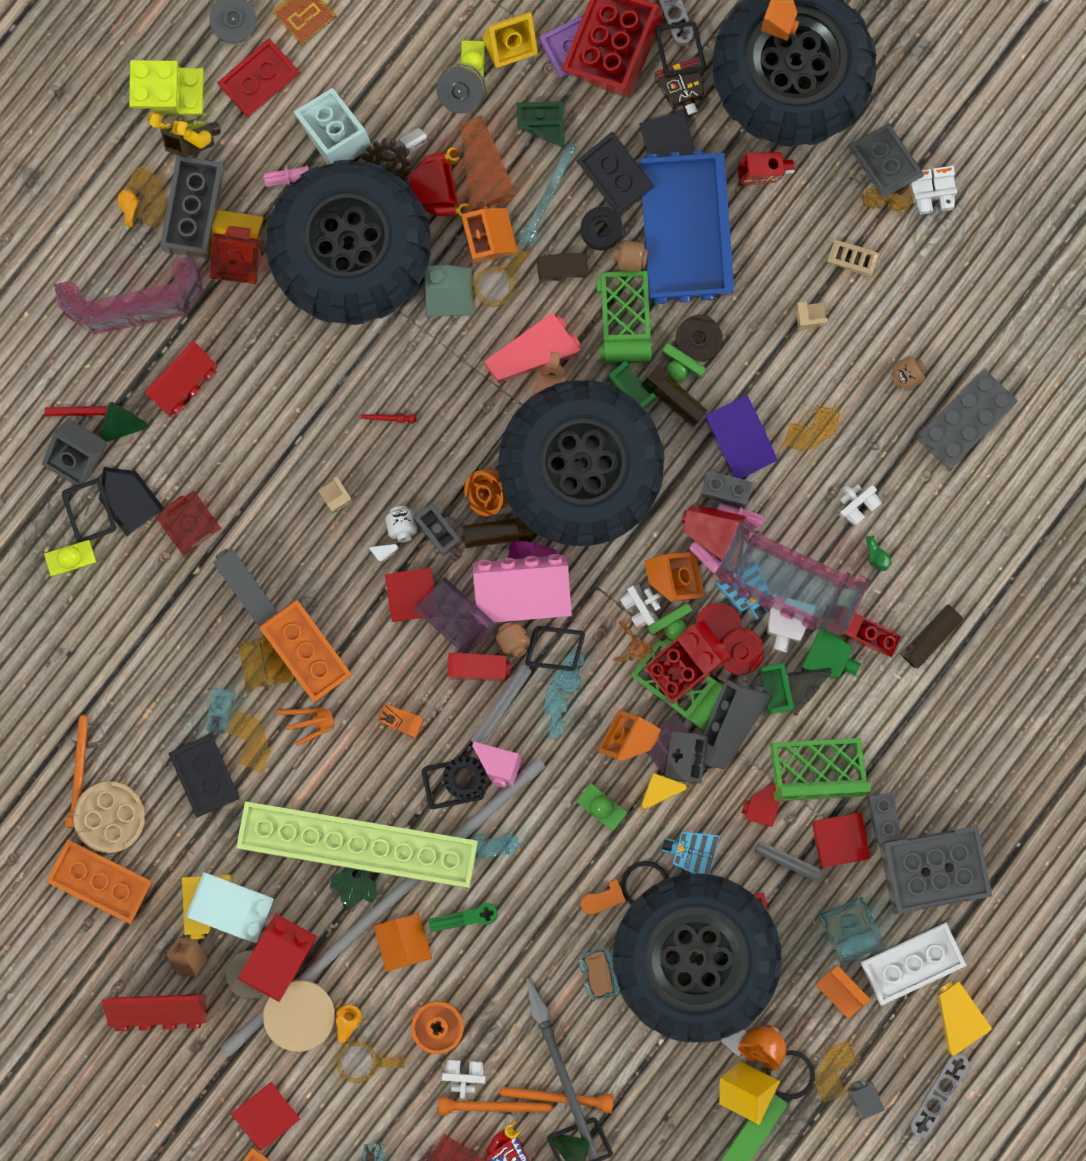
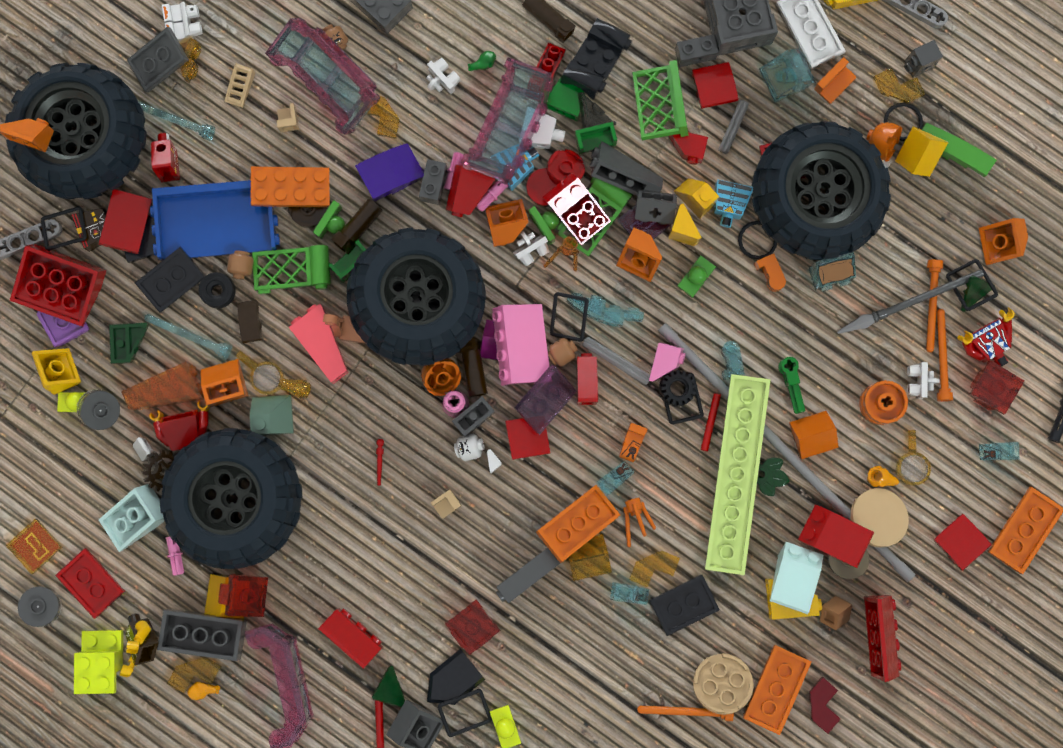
camera: 90 degrees left, 0 degrees up
(89, 933) = (819, 697): none -> dark red tile
(358, 697) = (615, 478): none -> clear light blue leg
(422, 817) = (710, 422): none -> red bar
(463, 513) = (455, 411): none -> bright pink plant
(480, 321) = (298, 388): none -> clear yellow cone
(686, 121) = (125, 221): none -> red tile
(699, 808) = (697, 196): none -> yellow slope
(723, 317) = (290, 186): none -> orange plate
(797, 216) = (206, 131): none -> clear light blue piece
(863, 363) = (325, 71): none -> windscreen
(875, 692) = (596, 58): none -> black piece

